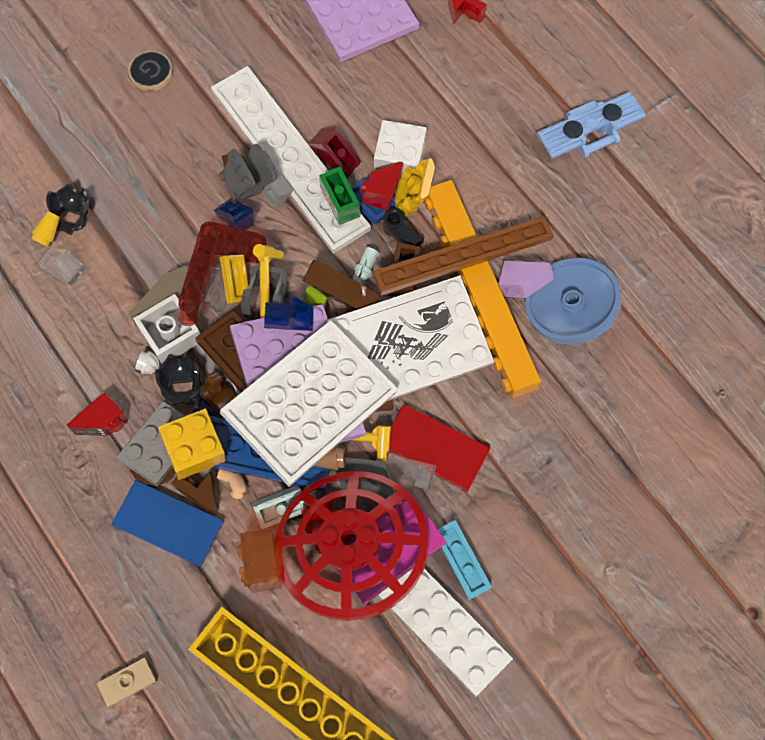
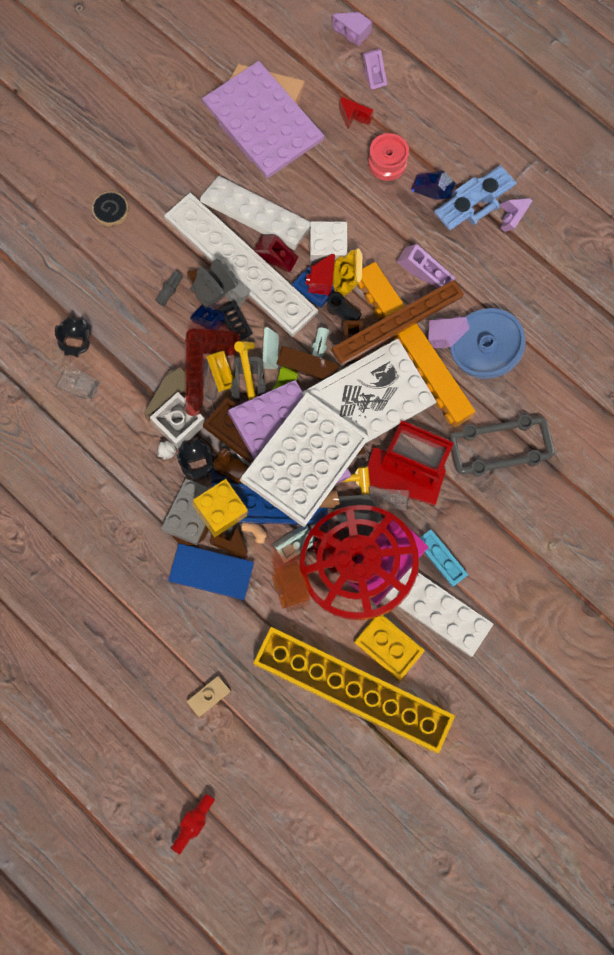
camera: 15 degrees left, 5 degrees up
(46, 229) = (58, 356): yellow cone -> none
(98, 418) = (139, 500): red slope -> none
(196, 173) = (169, 289): none -> dark grey axle
(263, 207) = (233, 307): none -> black slope
(290, 316) = (273, 394): clear blue slope -> none
(303, 256) = (270, 349): none -> light aqua slope
(321, 100) = (256, 212): none -> white plate
(339, 196) = (290, 290): green brick -> none
(371, 662) = (389, 647): none -> yellow tile
(458, 419) = (418, 451): none -> window
(493, 61) = (388, 156): none -> coral wheel
(511, 195) = (424, 267): none -> lavender slope
(544, 103) = (434, 185): none -> clear blue slope
(600, 407) = (524, 423): none -> dark grey bar
(638, 147) = (515, 211): none -> lavender slope

